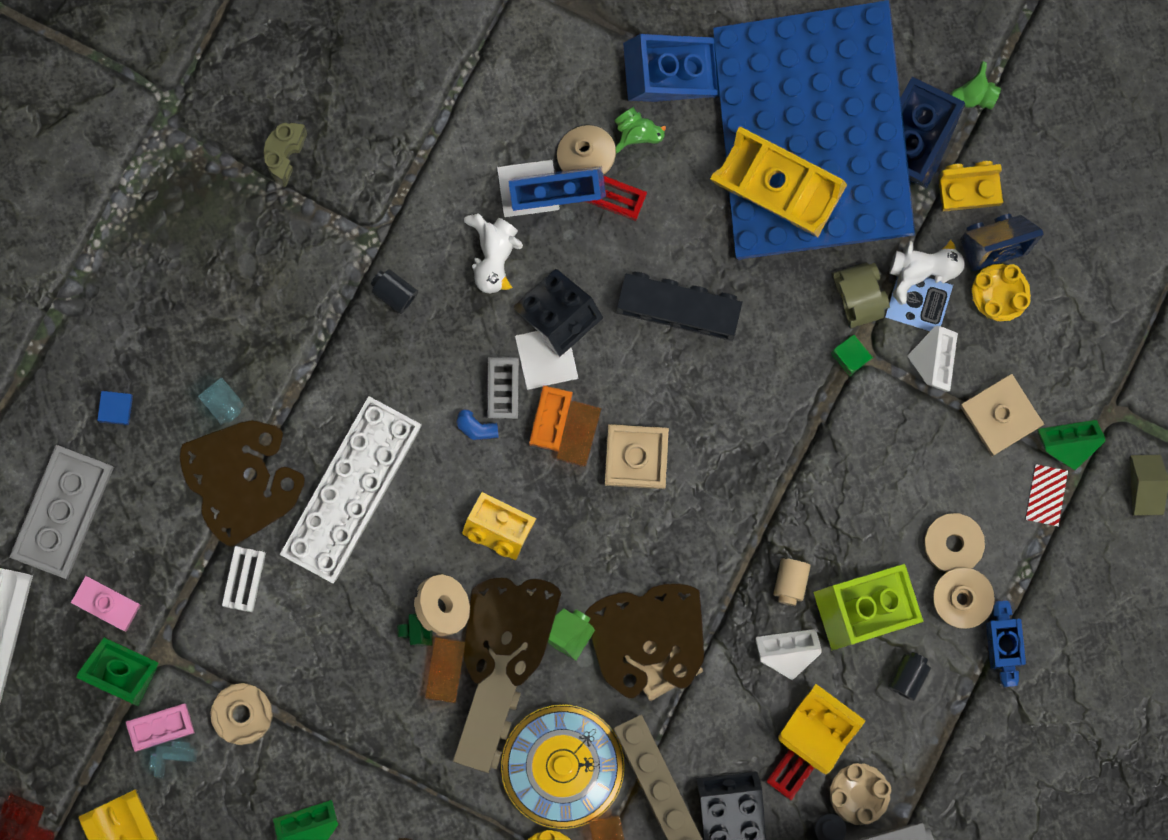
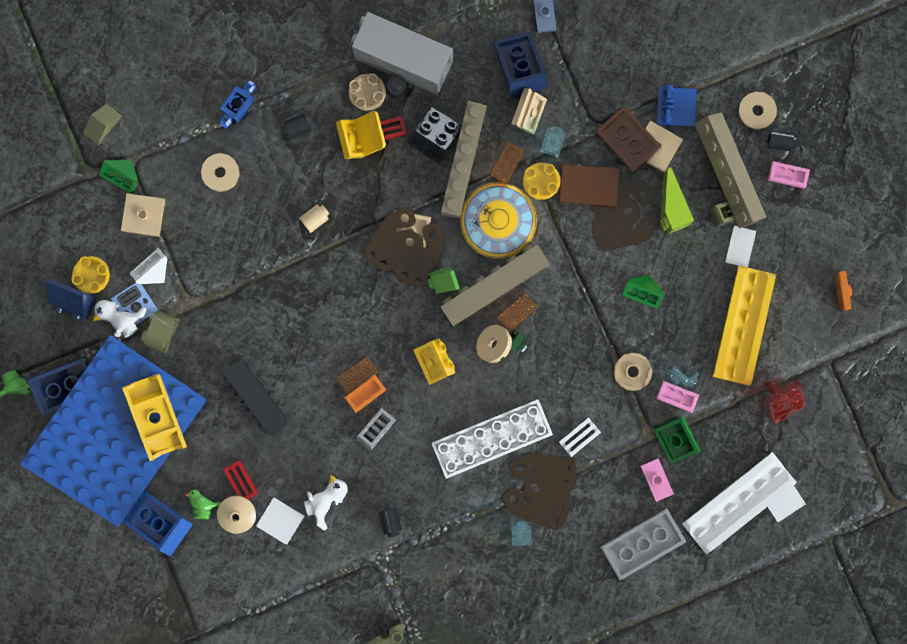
camera: 135 degrees left, 5 degrees up
(115, 408) = (576, 575): blue tile -> none
(473, 428) = (407, 420): blue arm -> none
(514, 611) = (462, 312): dark brown piece -> none
(541, 364) = (341, 427): white sticker -> none
(557, 188) = (266, 505): blue brick -> none
(559, 311) = (317, 444): black bracket -> none
(636, 456) = (338, 340): tan plate -> none
(789, 651) = (344, 186): white slope -> none
(851, 355) = (191, 304): green slope -> none
(868, 607) = (288, 175): lime slope -> none
(970, 186) = (60, 339): yellow bracket -> none
(978, 593) = (235, 133): tan dish -> none
(1046, 495) = (155, 159): sticker -> none

